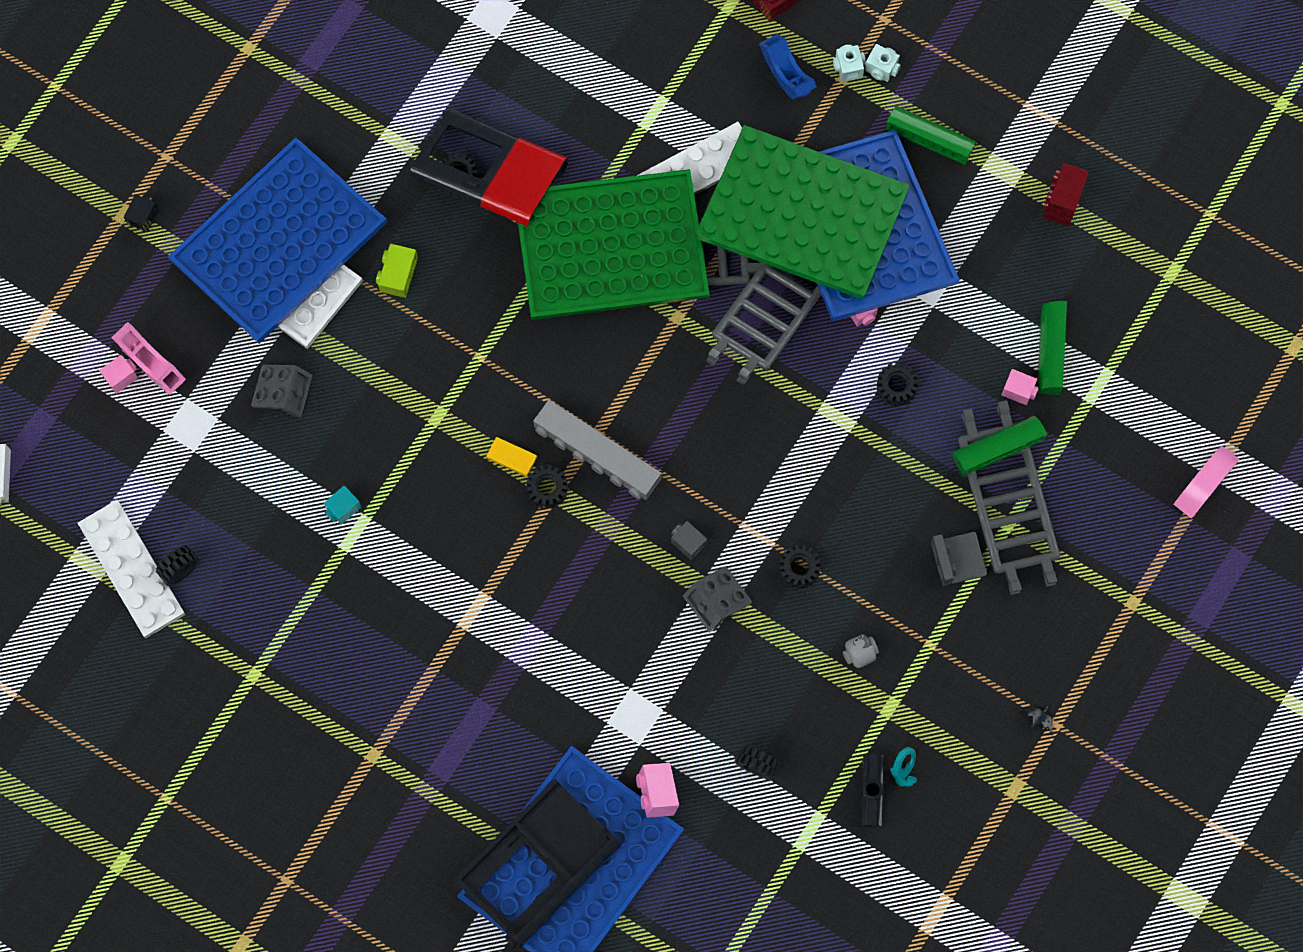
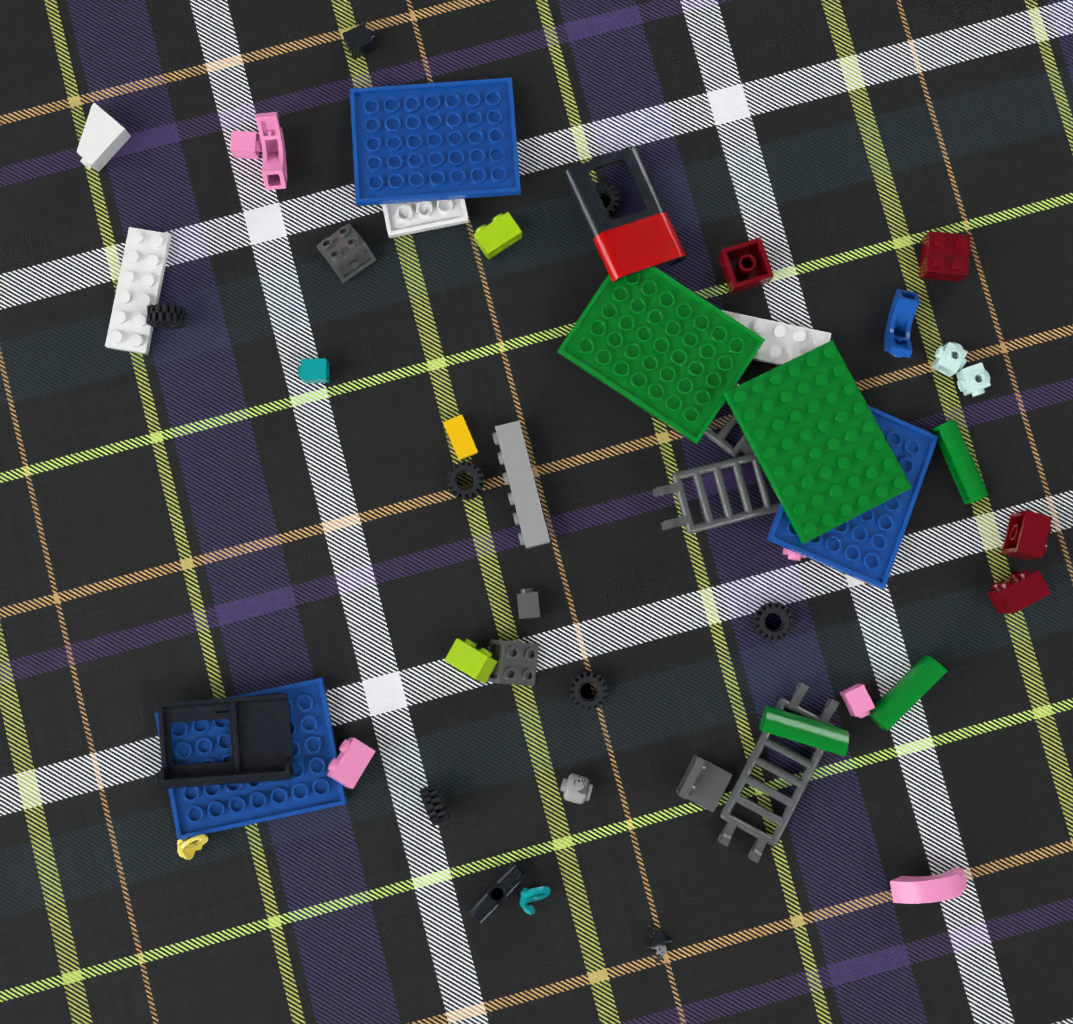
camera: 35 degrees right, 10 degrees up
(621, 126) = (745, 265): none -> dark red brick
(682, 622) = (471, 660): none -> lime brick
(1033, 146) = (1027, 535): none -> dark red brick

